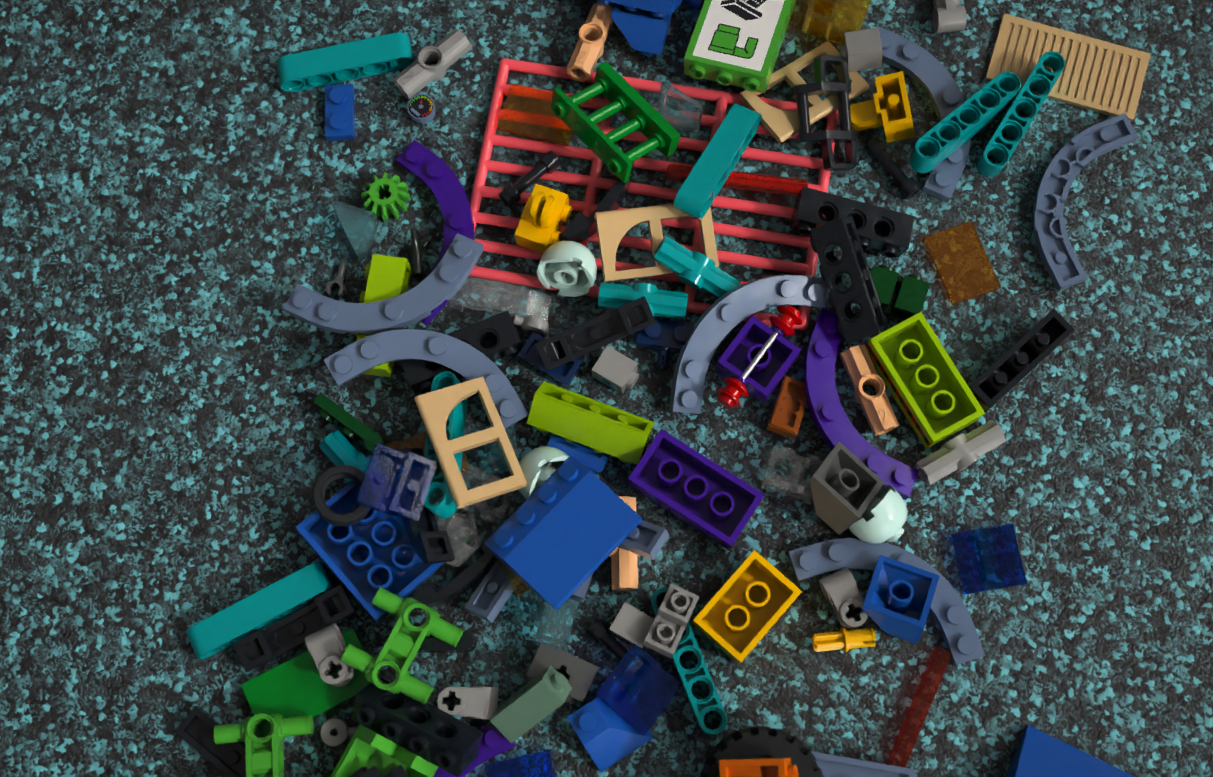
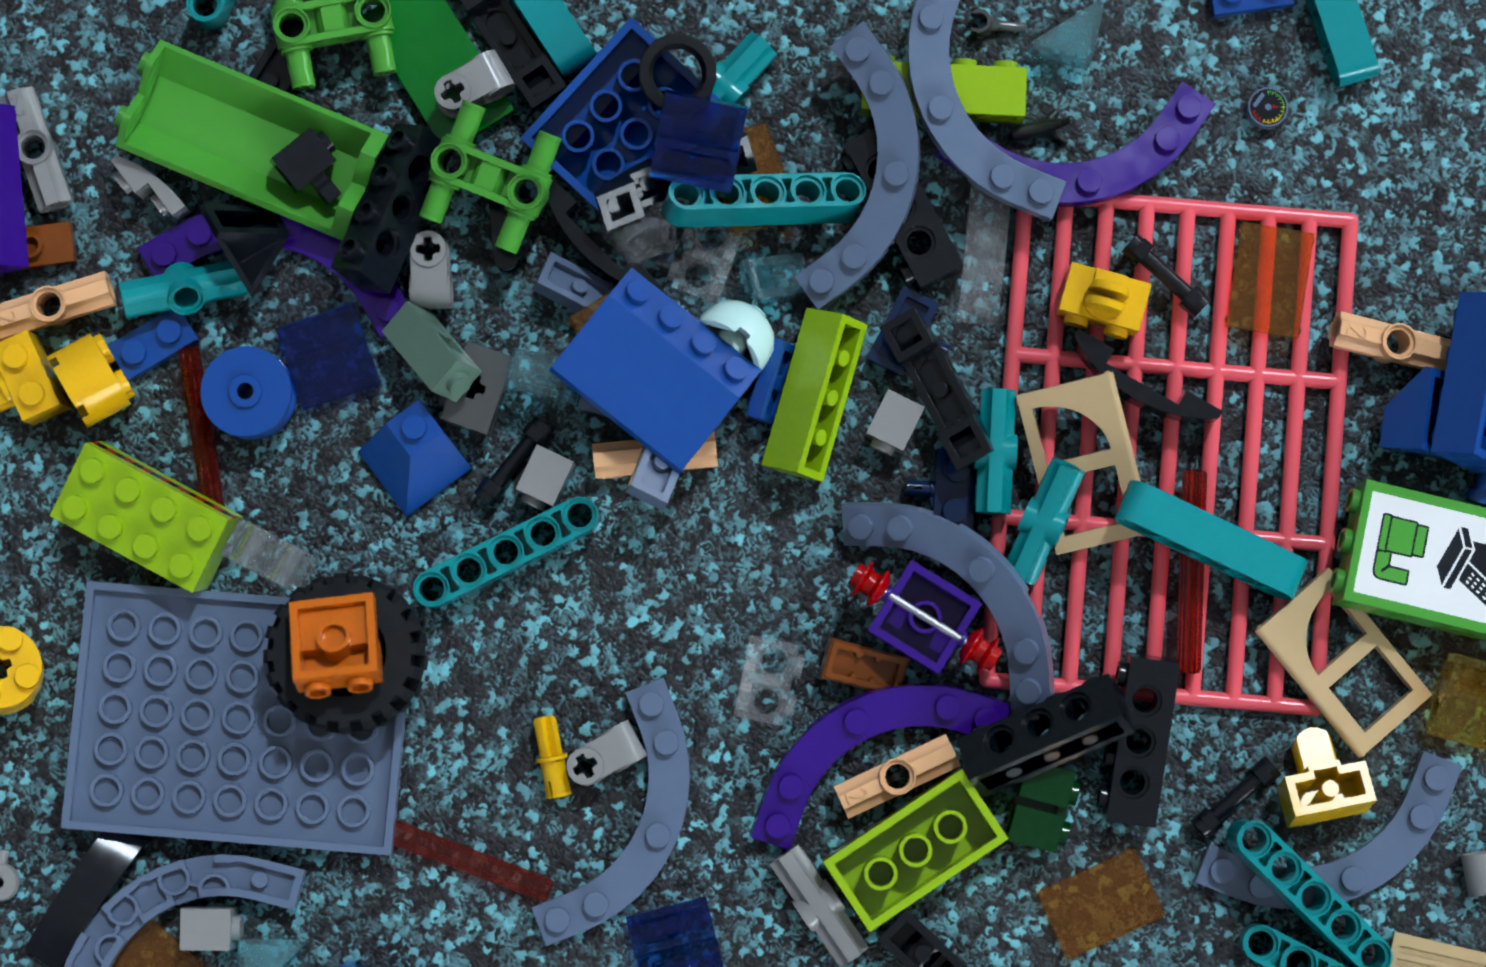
camera: 85 degrees right, 10 degrees up
(343, 729) = (382, 115): light grey piece -> none
(351, 426) = (783, 71): dark green plate -> none
(385, 187) = (1113, 61): bright green gear -> none
(420, 74) = (1356, 135): light grey piece -> none
(435, 410) = (802, 180): tan window -> none
(531, 324) = (950, 301): light grey piece -> none
(567, 268) = (1034, 342): light aqua cylinder -> none
(623, 100) = (1293, 398): green fence -> none
(638, 689) = (462, 489): clear blue slope -> none
(671, 620) = (552, 523): light grey slope -> none
(679, 109) = (1290, 479): clear light blue slope -> none
(695, 489) = (733, 543): dark purple brick -> none
(746, 607) = (580, 623): yellow brick -> none
(827, 137) = (1340, 681): black bar -> none
(843, 488) = (749, 741): dark grey slope -> none
(862, 49) = (1411, 741): light grey brick -> none
(882, 518) = (716, 795): light aqua cylinder -> none
(900, 598) = (611, 826): blue slope -> none

